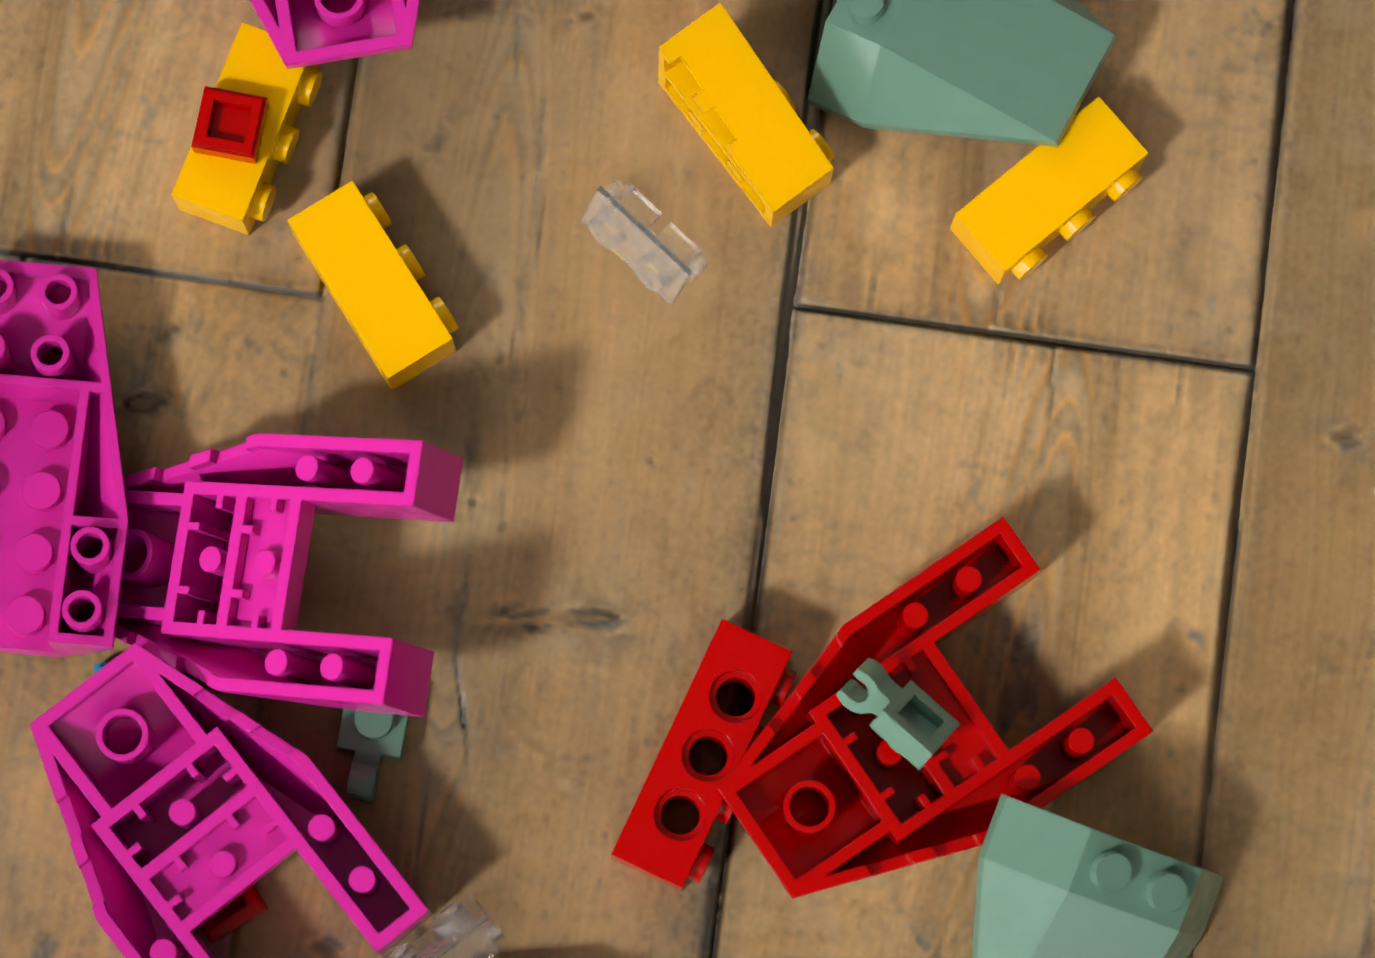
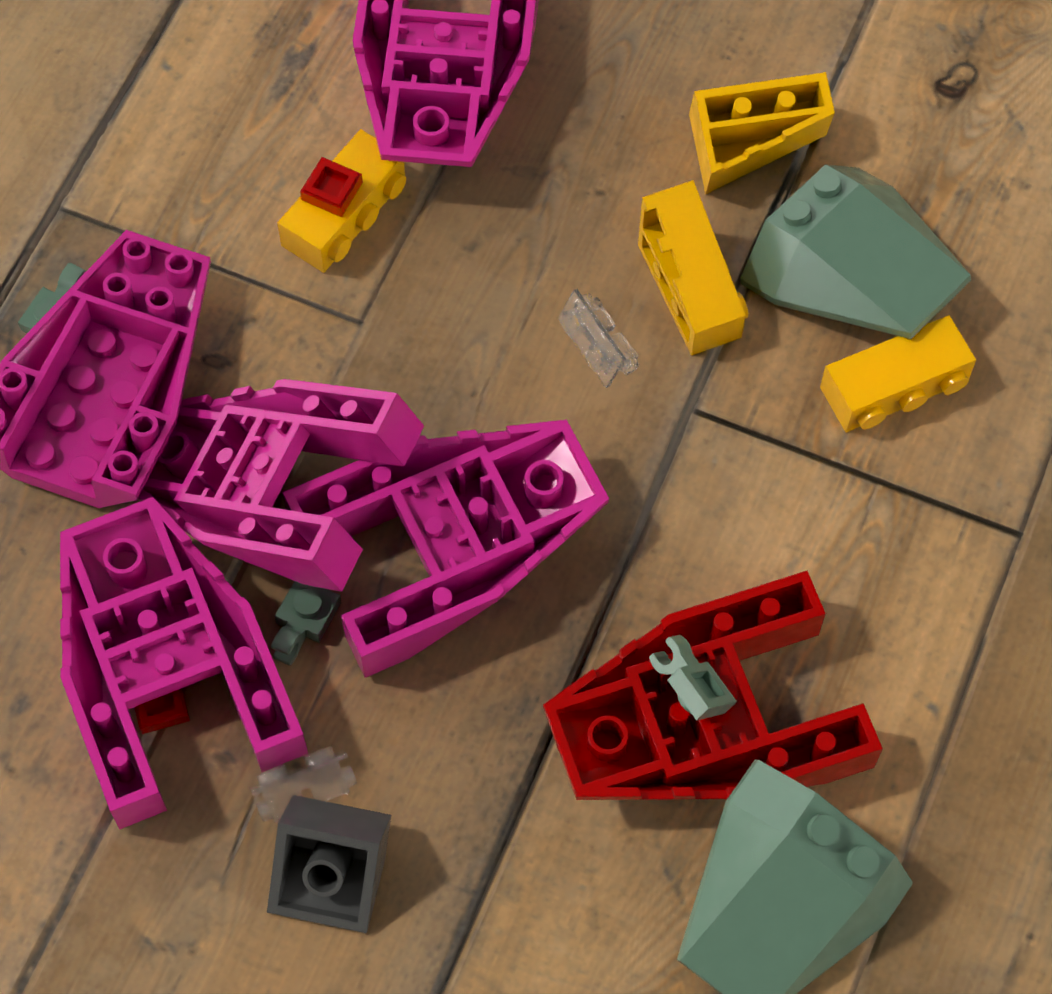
camera: 20 degrees right, 15 degrees down
(375, 283) = (400, 318): yellow brick -> none
(561, 544) = (477, 515): none -> dark pink wedge
(731, 658) = (496, 756): red brick -> none

